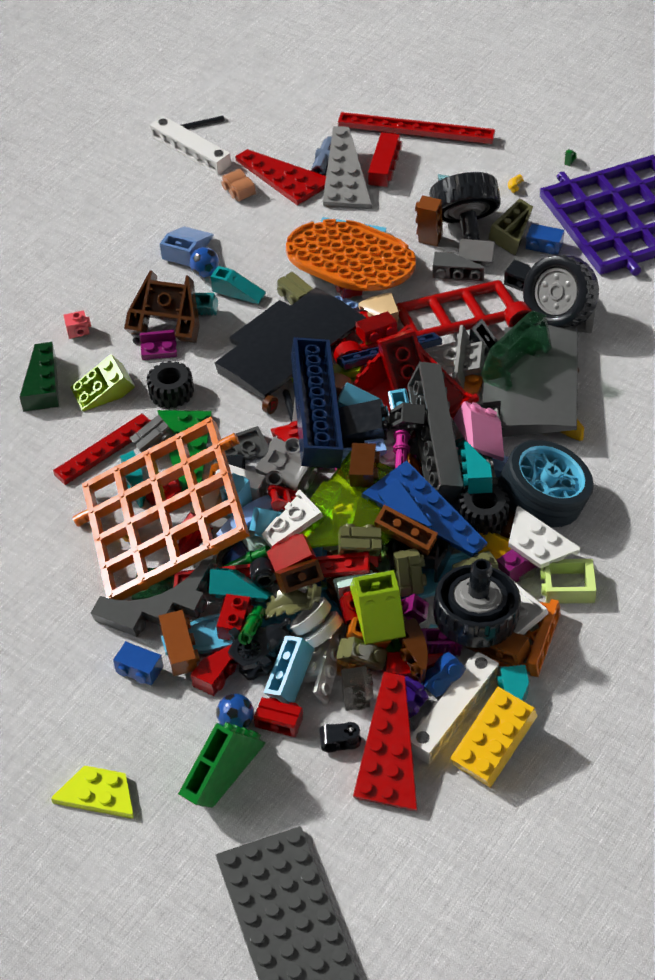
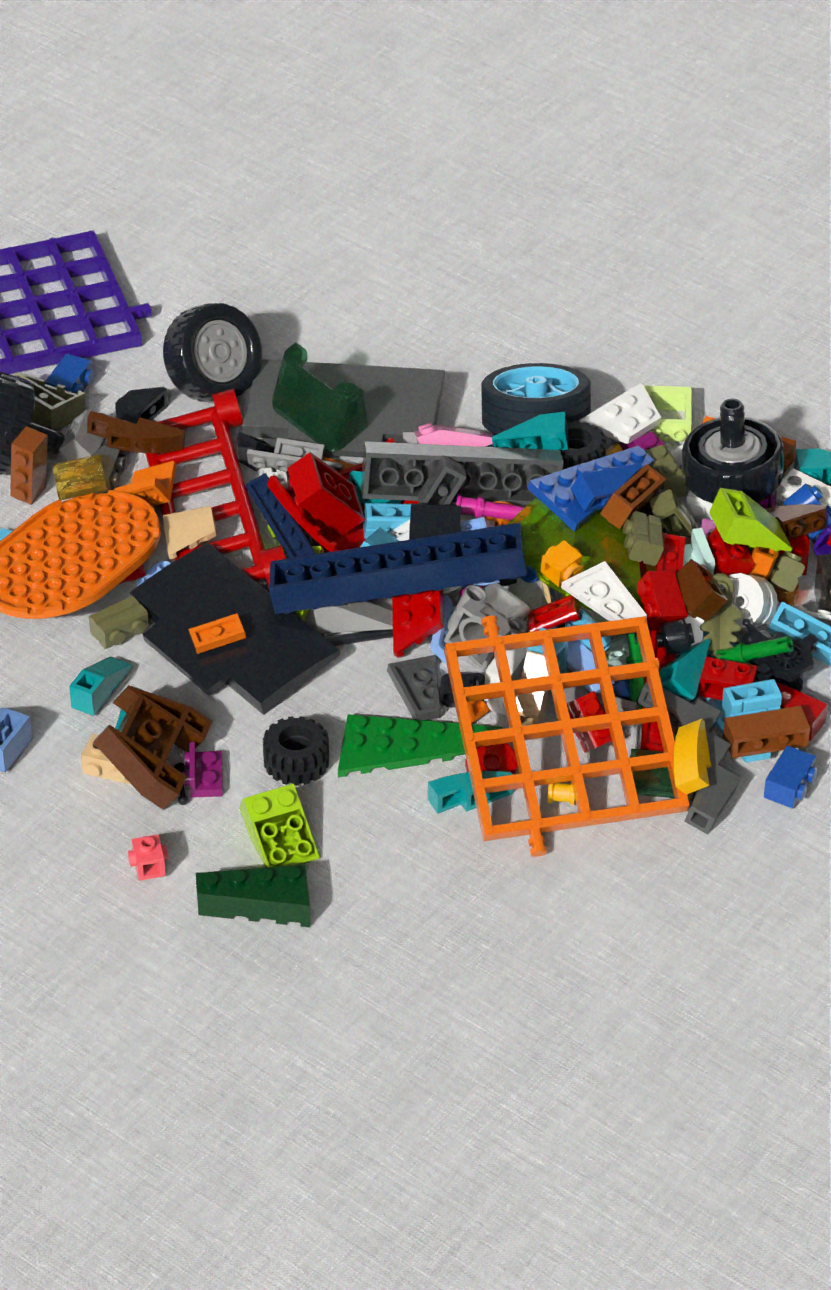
camera: 90 degrees left, 5 degrees down
(100, 450) = (402, 830): red plate -> none
(137, 587) = (691, 757): none -> yellow slope
(152, 434) = (400, 766): dark grey brick -> none
(204, 261) = (45, 710): blue piece -> none
(204, 629) = (751, 698): none -> medium azure brick
(269, 328) = (217, 633): none -> orange plate
(270, 404) = (348, 654): reddish brown tile -> none
(318, 487) = (561, 563): none -> light orange brick
(363, 464) = (537, 515): reddish brown brick -> none
(376, 327) = (238, 528): red brick -> none
(422, 290) = (152, 483): none -> orange bracket
(427, 250) = (79, 477): none -> clear yellow slope
(471, 266) = (142, 437): none -> reddish brown slope

